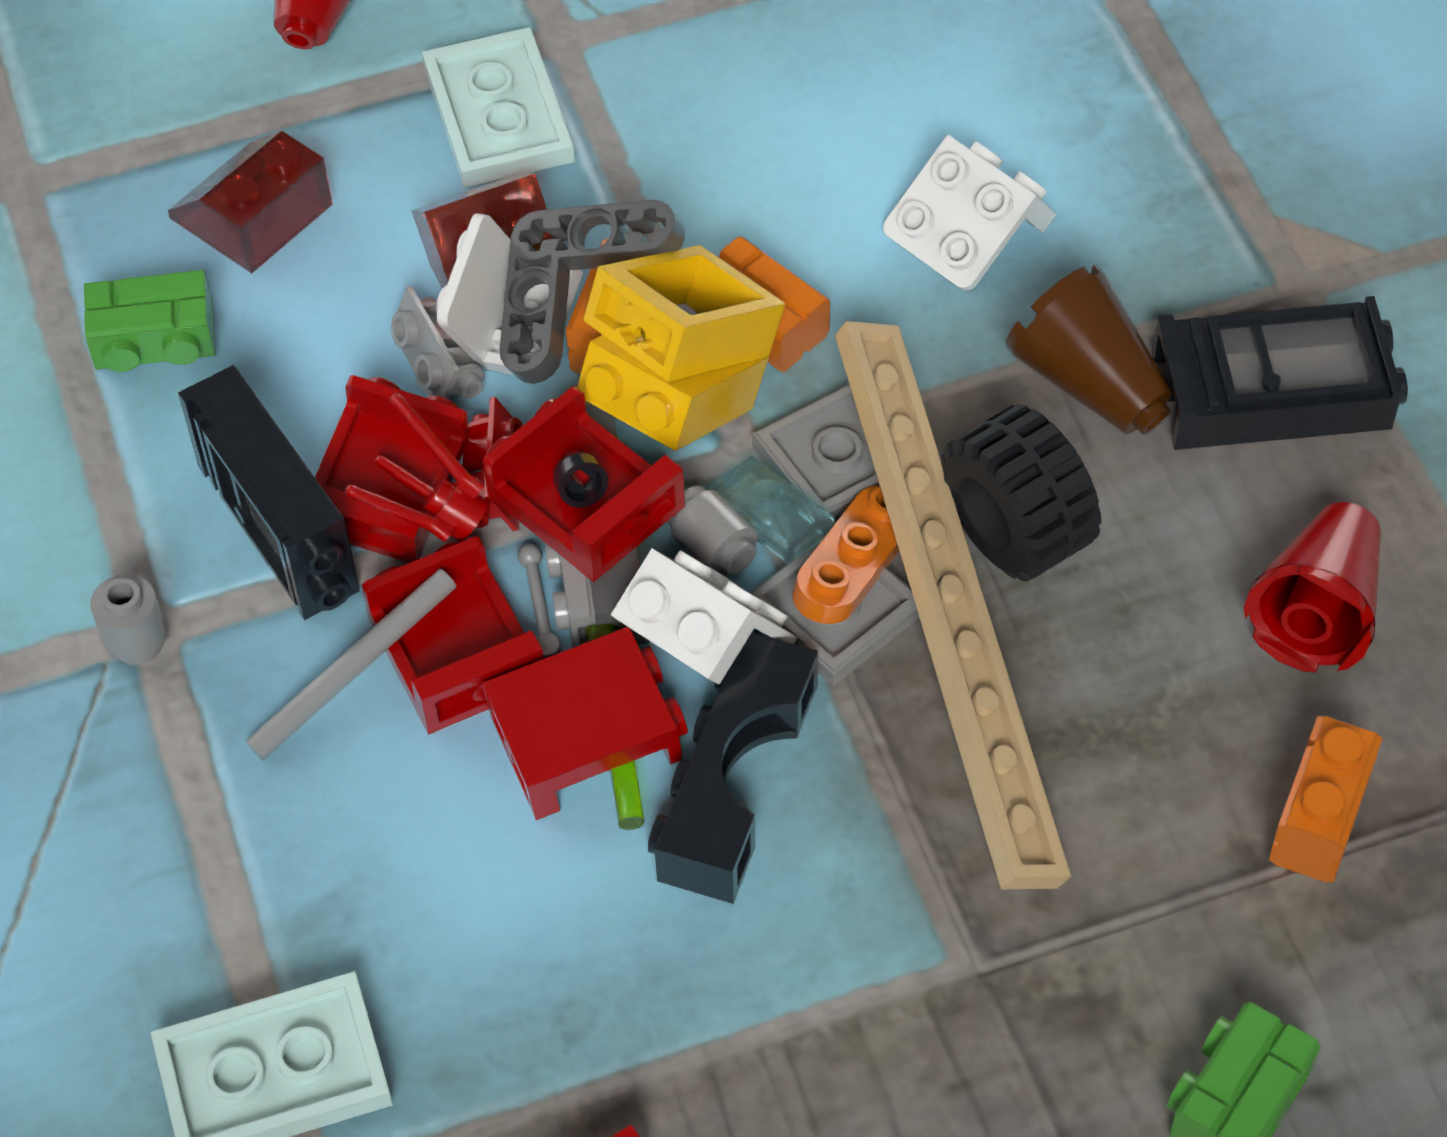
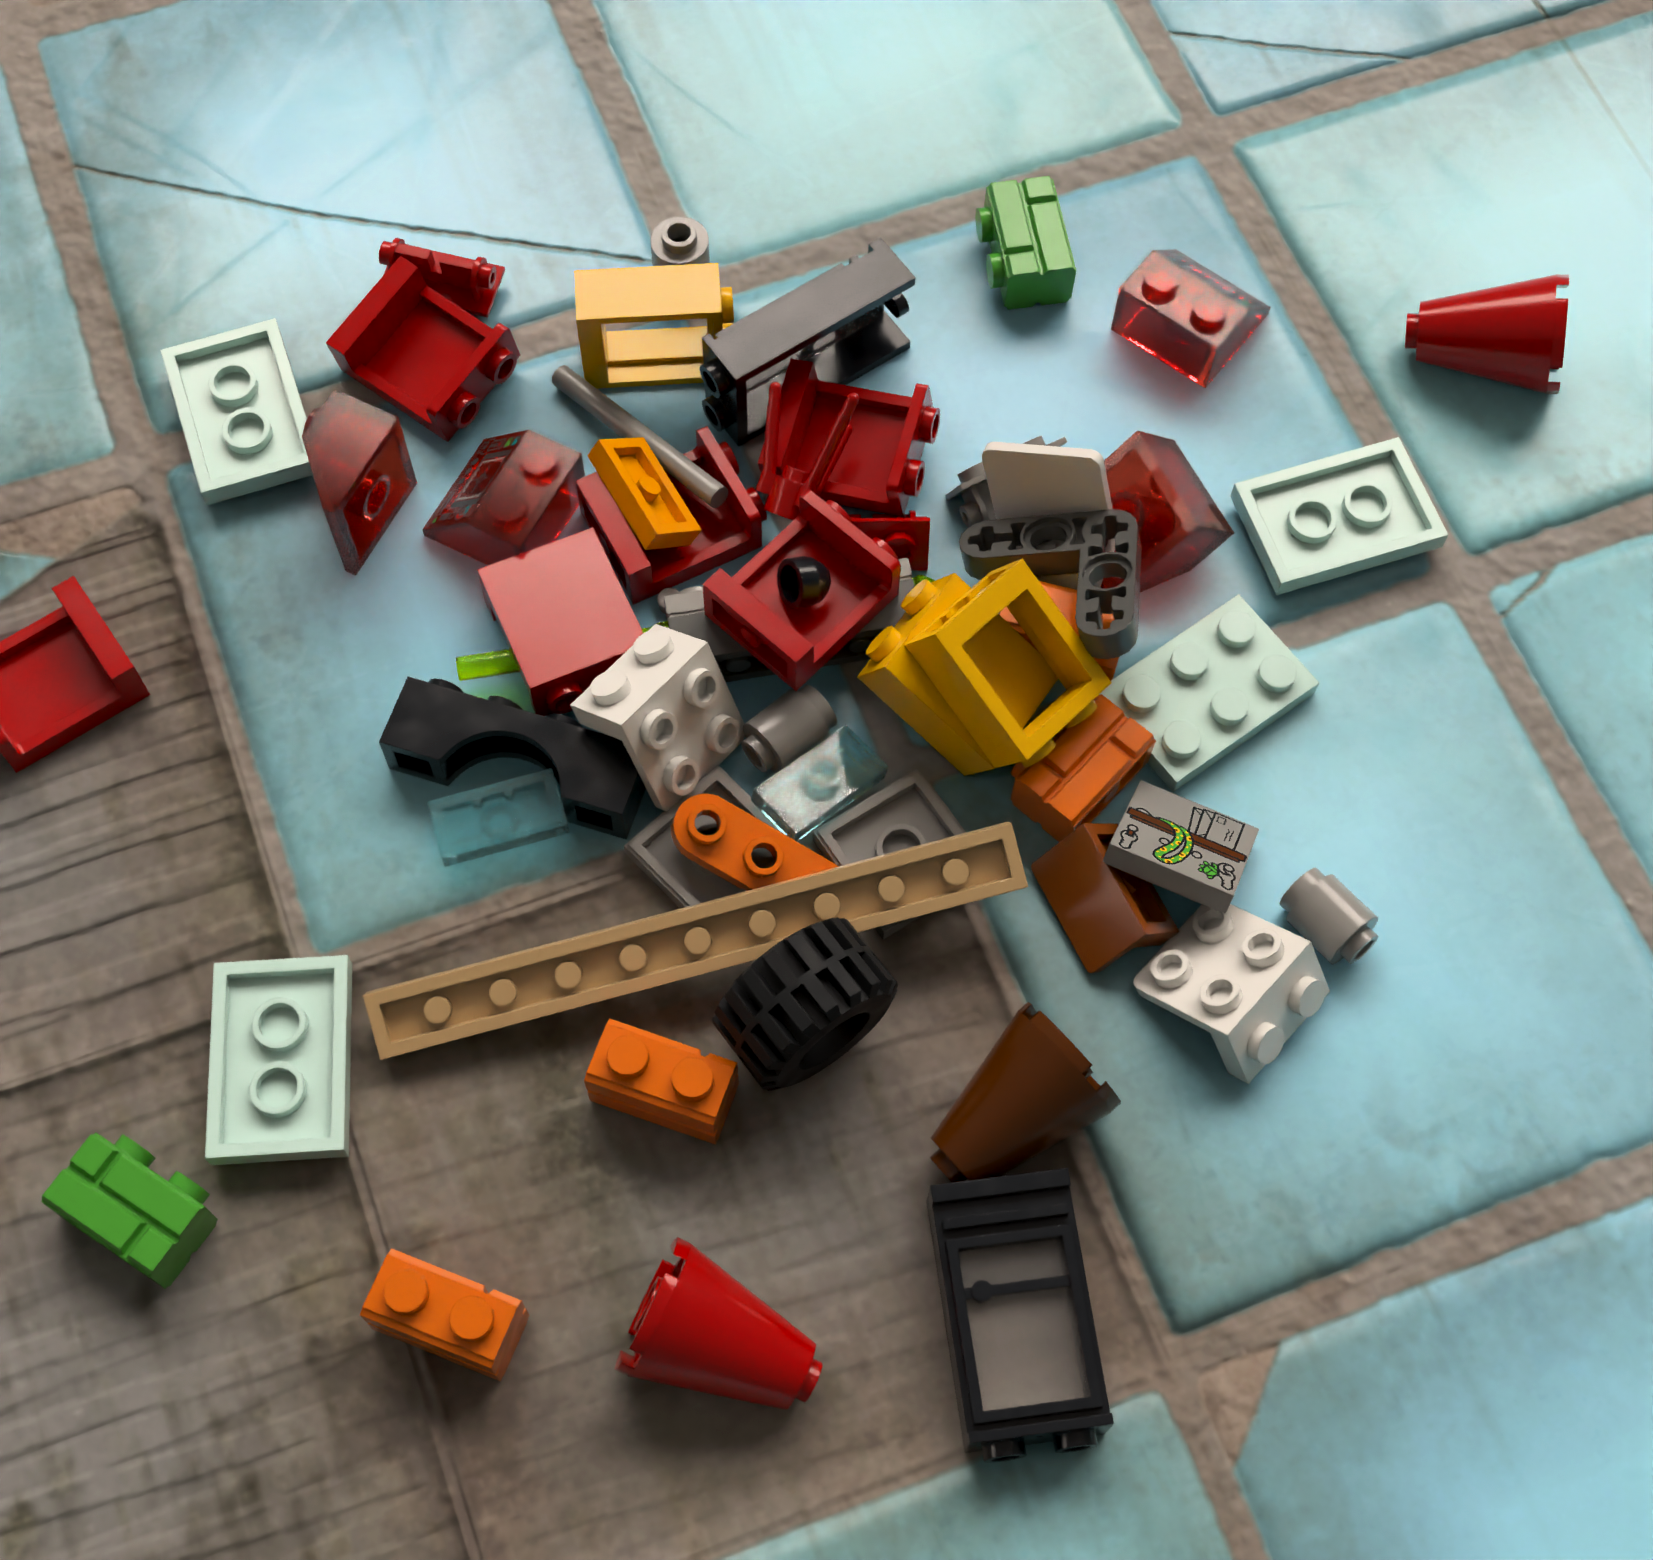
camera: 85 degrees right, 10 degrees up
(107, 869) = (459, 279): none -> red hinge
(220, 871) = (423, 351): none -> red panel
(228, 632) = (648, 295): none -> yellow window
(400, 915) = (358, 472): none -> clear red slope
(422, 785) = (509, 498): none -> clear red slope
(438, 642) = (644, 493): none -> light orange plate
(676, 177) = (1211, 690): none -> light aqua plate
(802, 784) = (498, 817): none -> clear light blue plate
(846, 229) = (1181, 846): none -> light grey tile
(896, 292) = (1098, 904): none -> dark orange panel
(904, 142) = (1330, 917): none -> light grey brick
(1074, 969) = (279, 1060): none -> light aqua plate
(1085, 628) = (662, 1081): none -> orange brick

